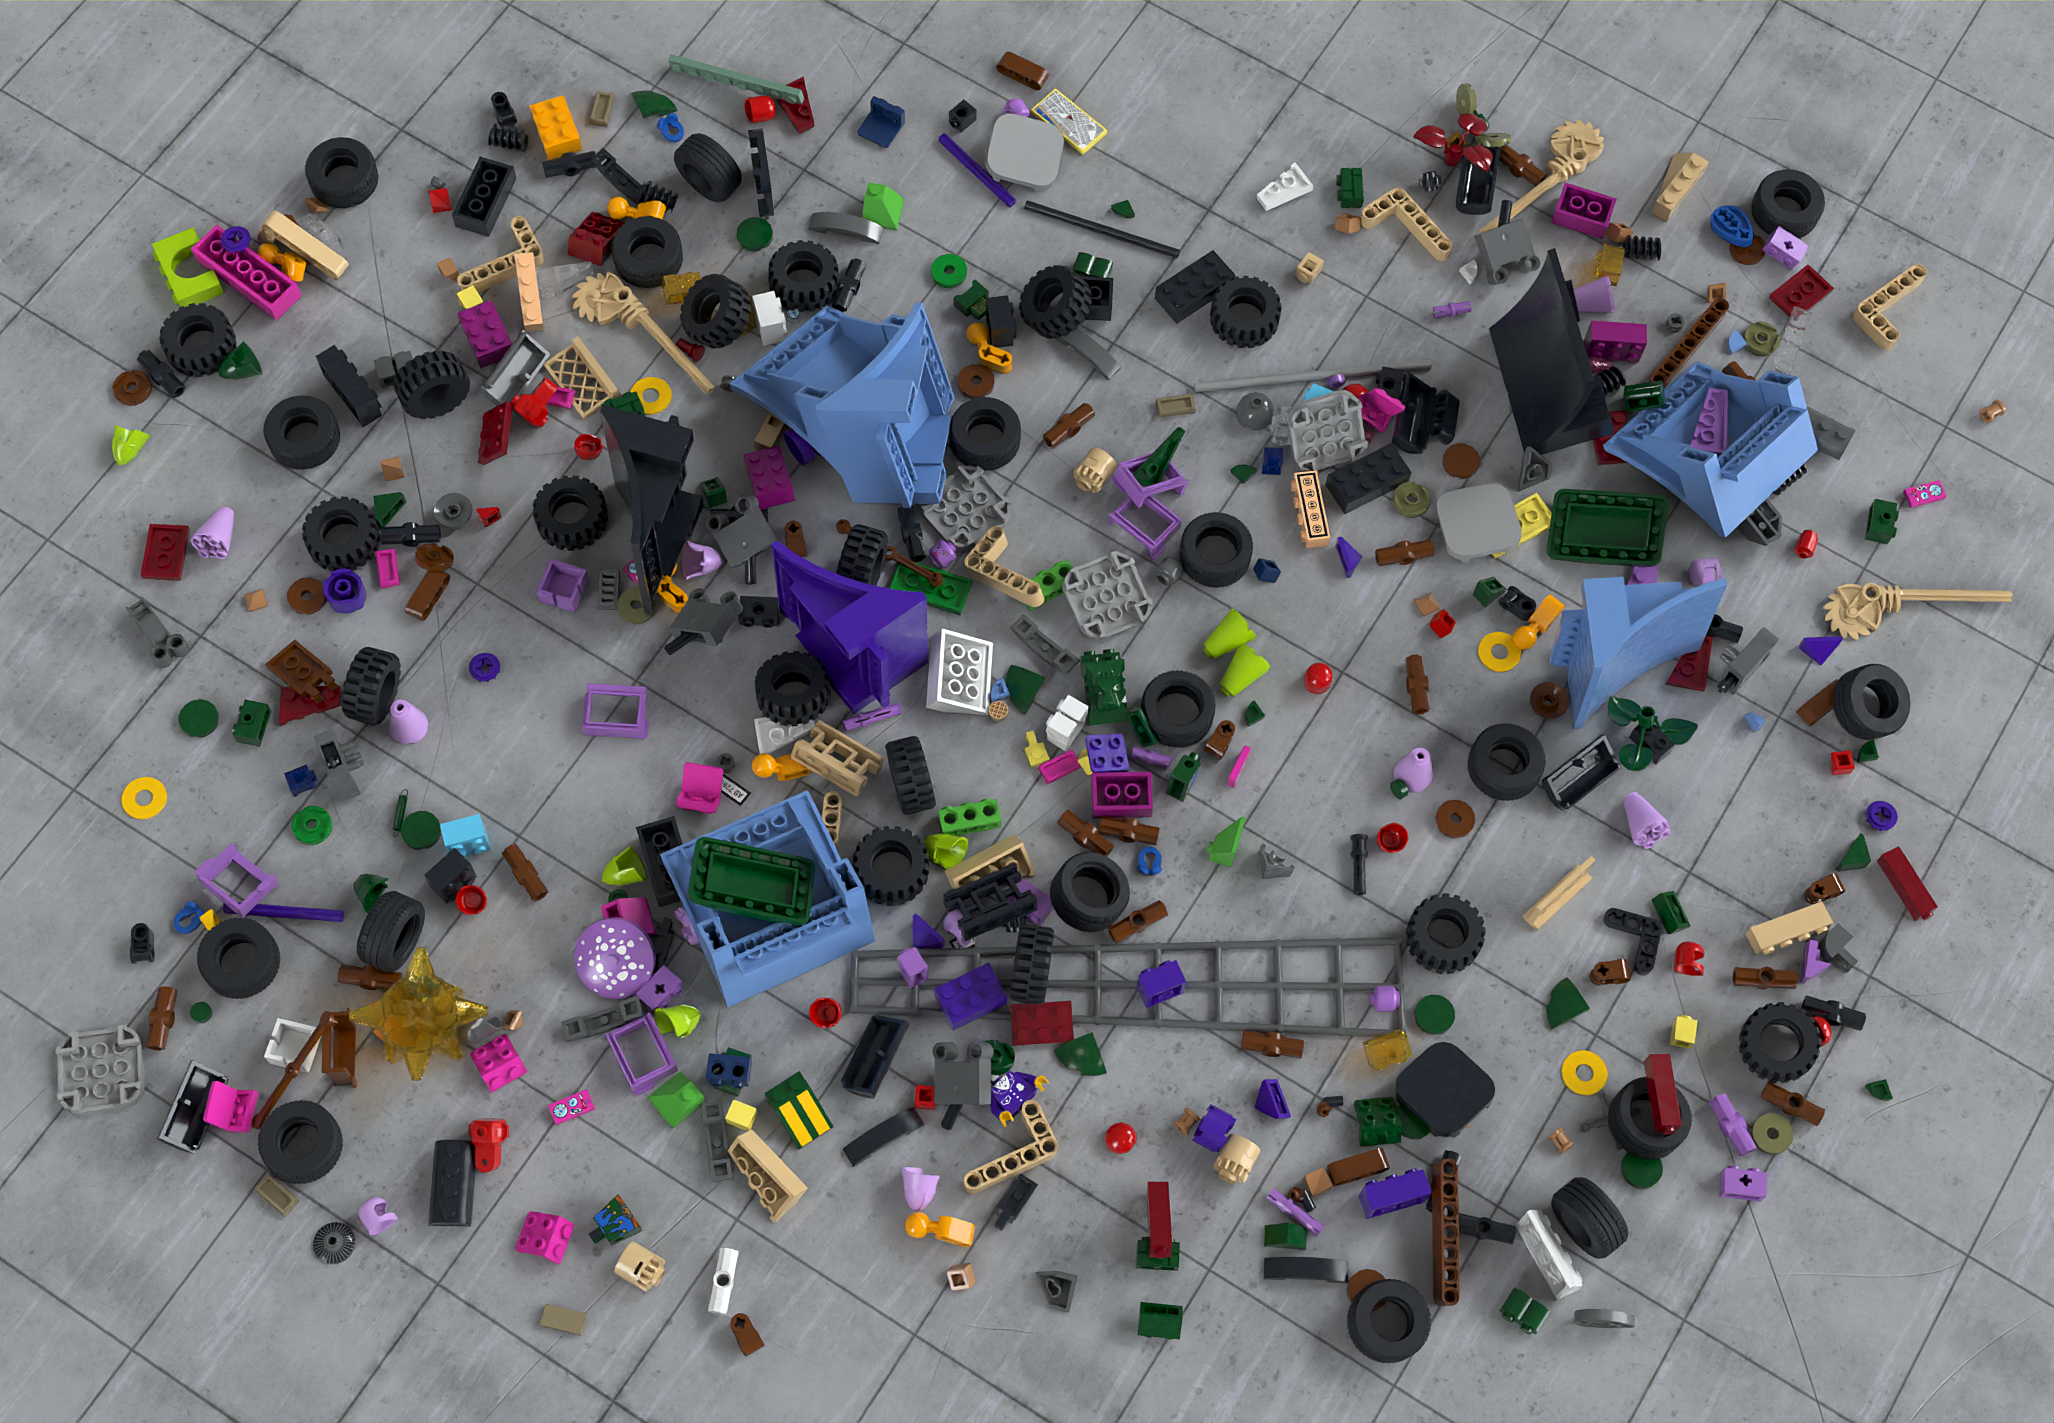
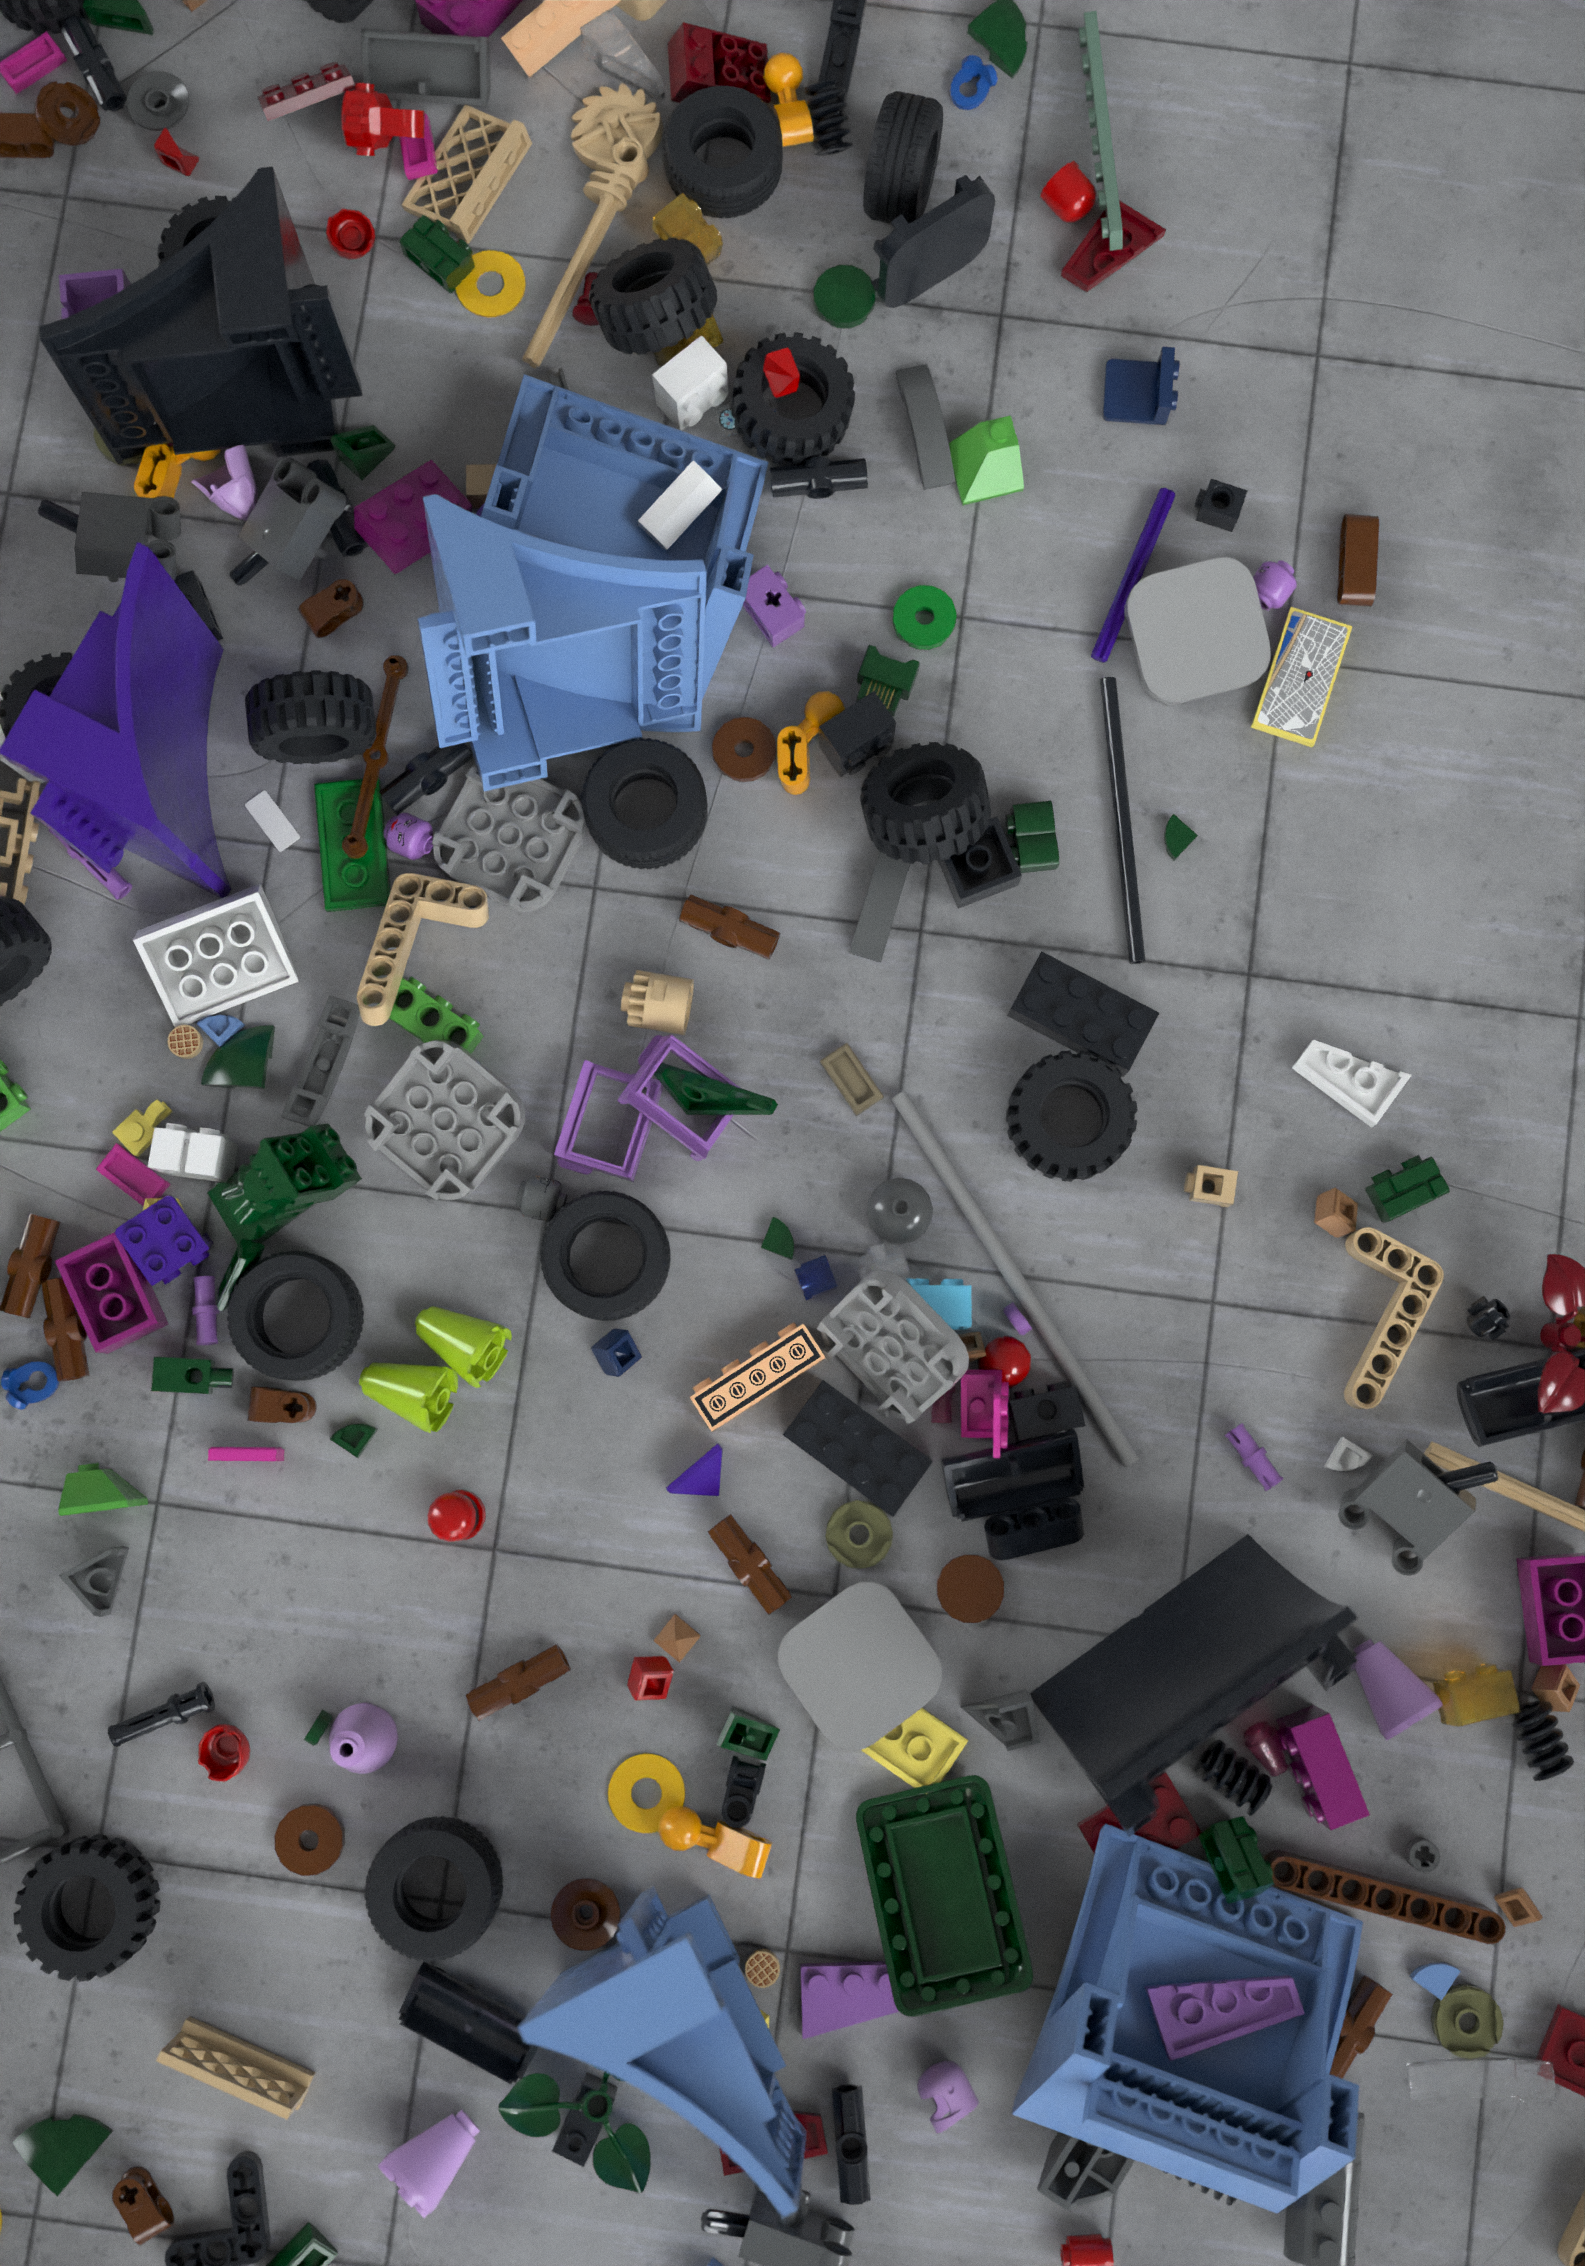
camera: 70 degrees right, 15 degrees up
(796, 265) = (781, 372): none -> red slope
(839, 344) = (679, 505): none -> white piece

